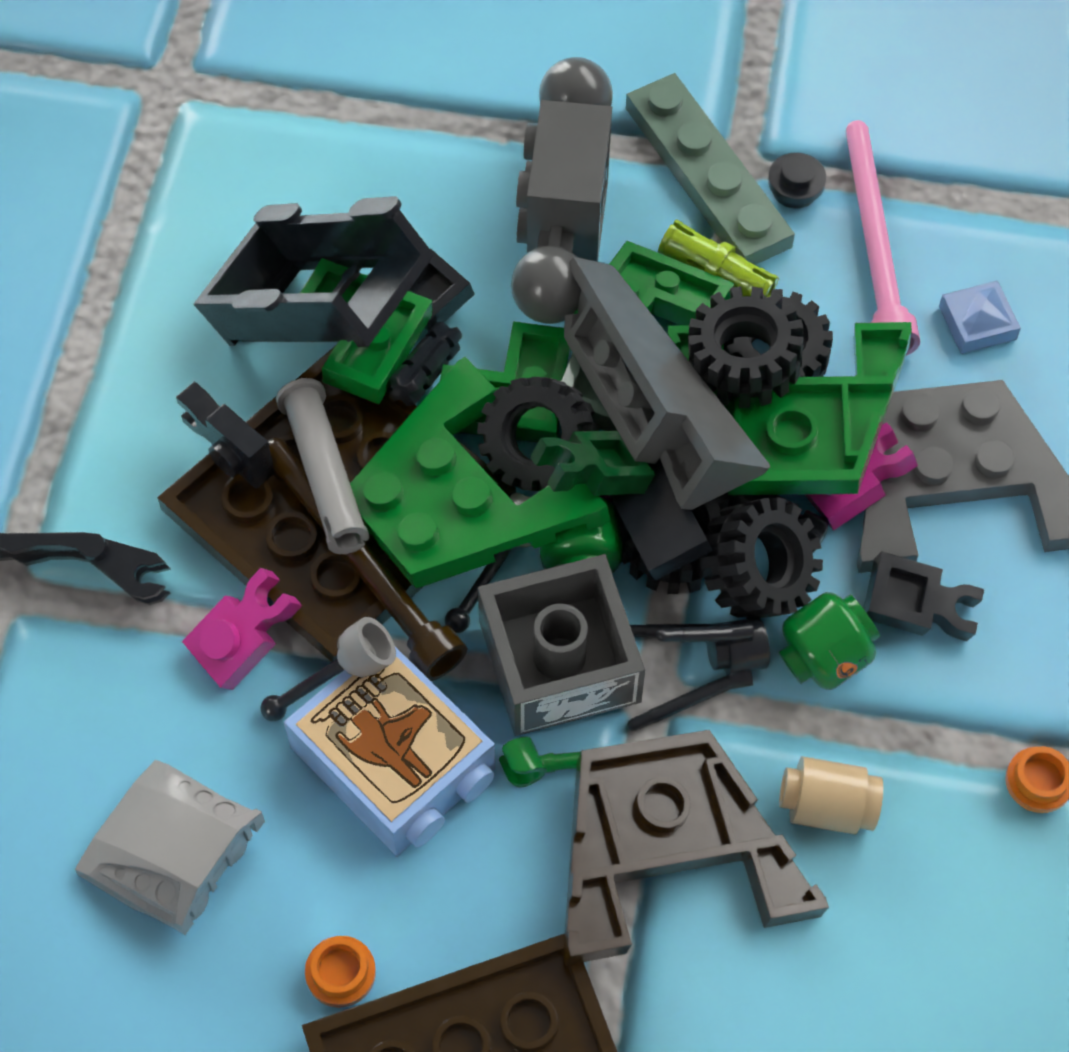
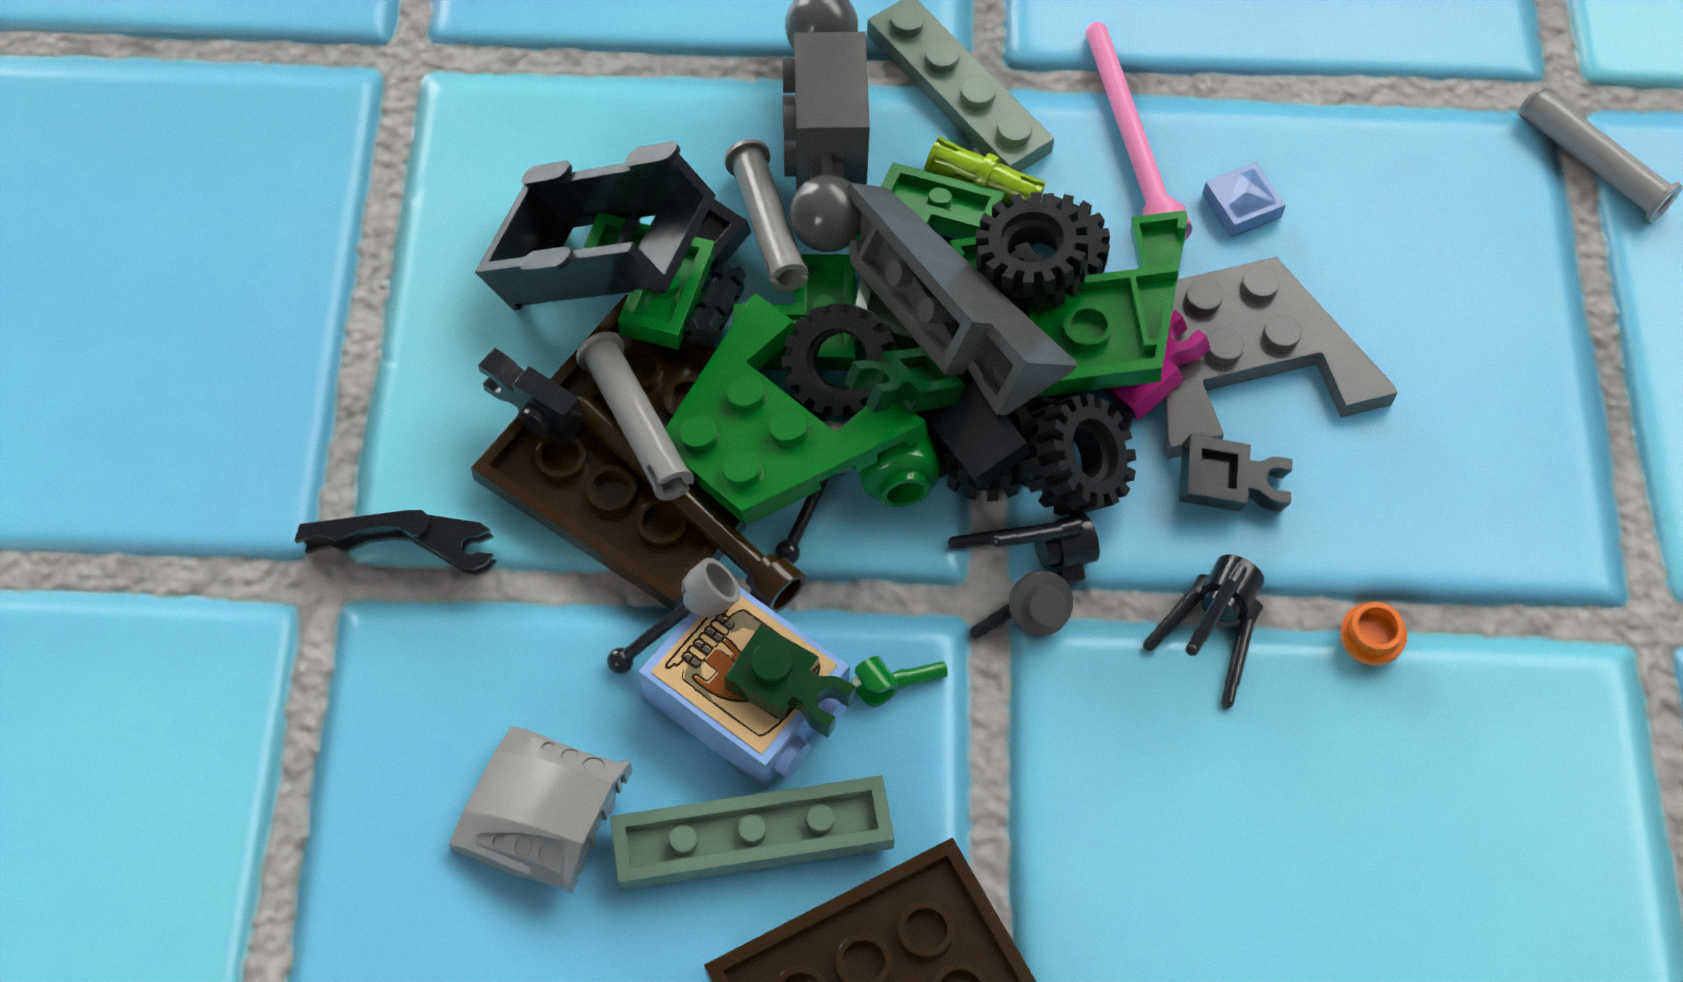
camera: 10 degrees left, 0 degrees up
(234, 632) = (571, 592): dark pink plate -> none
(340, 971) = (731, 908): orange plate -> none
(372, 898) = (751, 832): none -> sand green plate
(423, 745) = (782, 676): none -> dark green plate
(483, 226) = (749, 164): none -> light grey pin
(560, 644) = (896, 562): dark grey brick -> none
(663, 812) = (1022, 711): wing -> none
(701, 703) = (1041, 603): none -> dark grey plate
(796, 179) = (1046, 86): black plate -> none
(829, 640) = (1153, 526): green head -> none
(831, 796) = (1173, 679): tan brick -> none
(891, 720) = (1224, 596): none -> black plant

